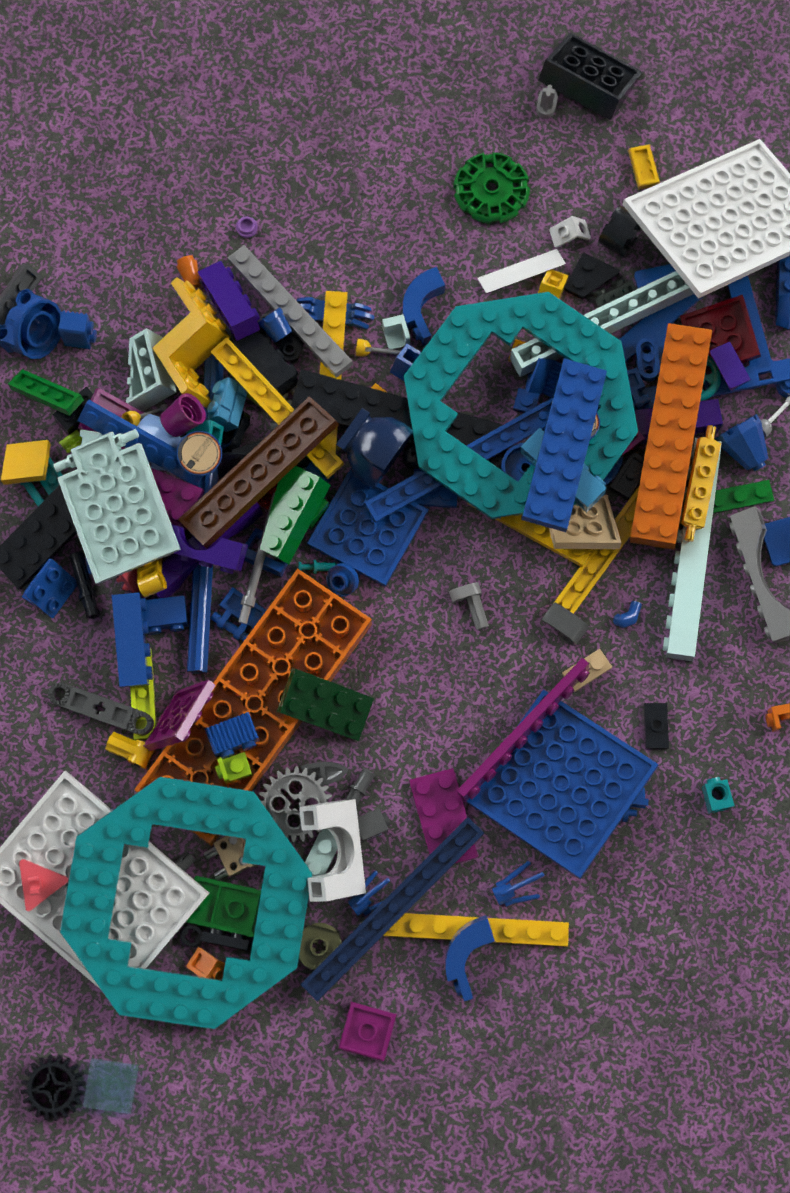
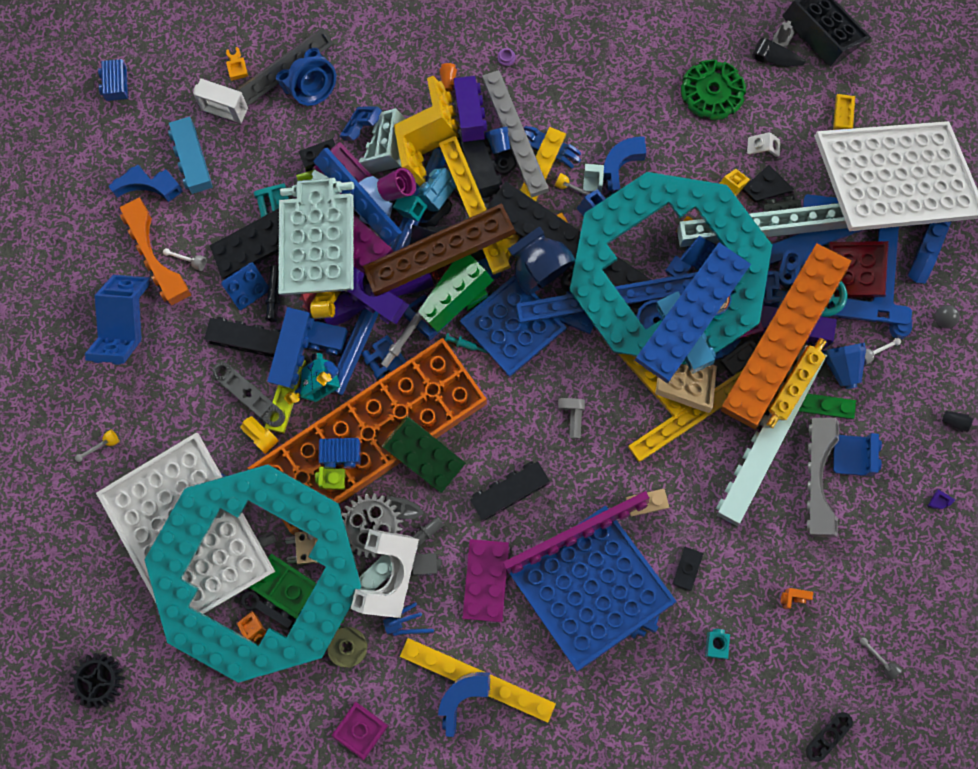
camera: 25 degrees right, 0 degrees up
(25, 462) = (264, 181): yellow tile -> none
(38, 883) = (144, 514): coral piece -> none
(46, 392) = (300, 132): green plate -> none
(70, 647) = (242, 337): none -> black brick
(77, 330) = (342, 92): blue brick -> none
(106, 352) = (361, 117): none -> blue plate
(111, 1086) = (142, 697): clear light blue plate -> none
(134, 417) = (359, 174): yellow hinge -> none
(173, 666) = (317, 380): none -> torso
(180, 715) = (306, 420): magenta plate -> none
(199, 453) = (398, 219): piece -> none
(342, 579) = (476, 359): blue plate -> none
(392, 909) = (415, 639): dark blue plate -> none
(433, 712) = (510, 491): none -> black brick
(504, 893) = (512, 658): blue plant -> none
(521, 271) = (713, 163): white sticker -> none
(545, 125) = (774, 53): none -> black piece
(566, 622) = (644, 458): dark grey panel -> none
(620, 232) = (804, 158): black brick -> none
(628, 618) = (697, 472): blue arm -> none
(730, 365) = (856, 295): dark purple slope -> none

